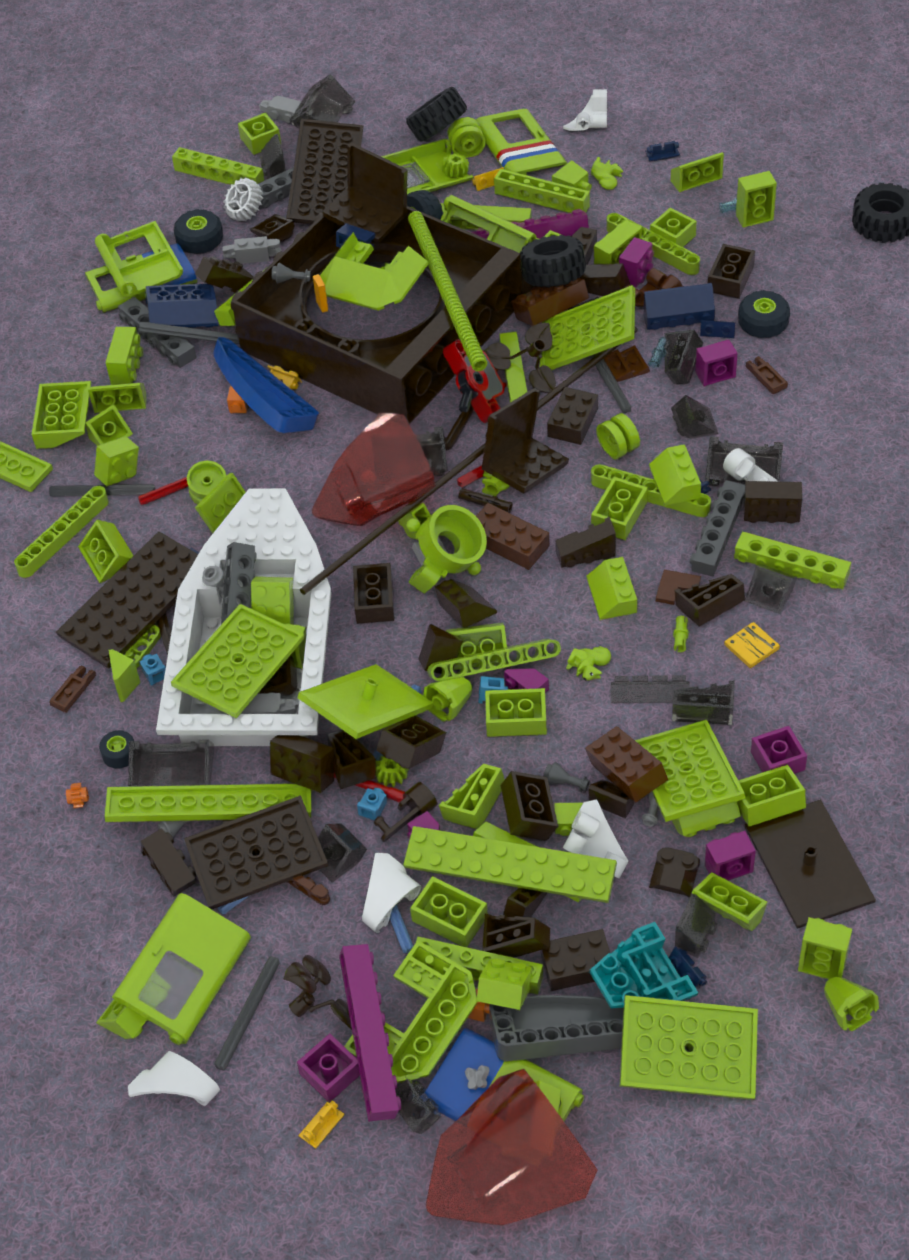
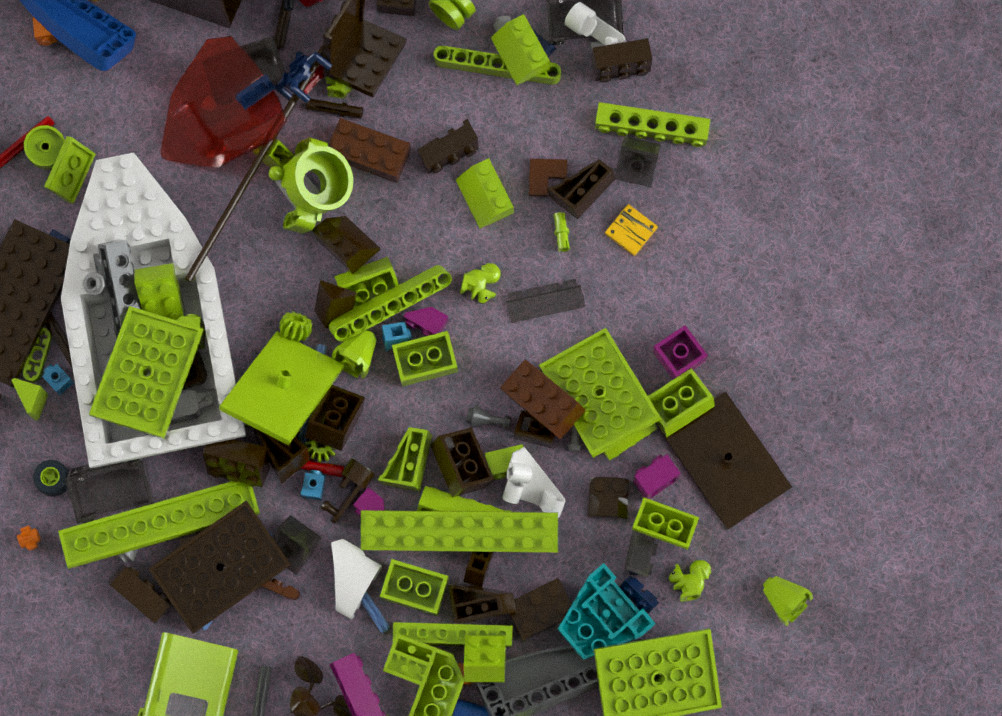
camera: 15 degrees left, 25 degrees up
(373, 593) = (252, 248): dark brown brick -> none
(395, 663) = (295, 326): none -> lime gear
(409, 468) = (255, 91): none -> dark blue hinge
(458, 456) = (299, 71): none -> dark blue plate
(623, 504) = (471, 94): lime brick -> none
(708, 703) = (602, 312): clear smoke wedge -> none
(718, 528) = (576, 52): dark grey brick -> none
(746, 969) = (692, 583): none -> lime animal
(824, 948) = (759, 557): lime brick -> none

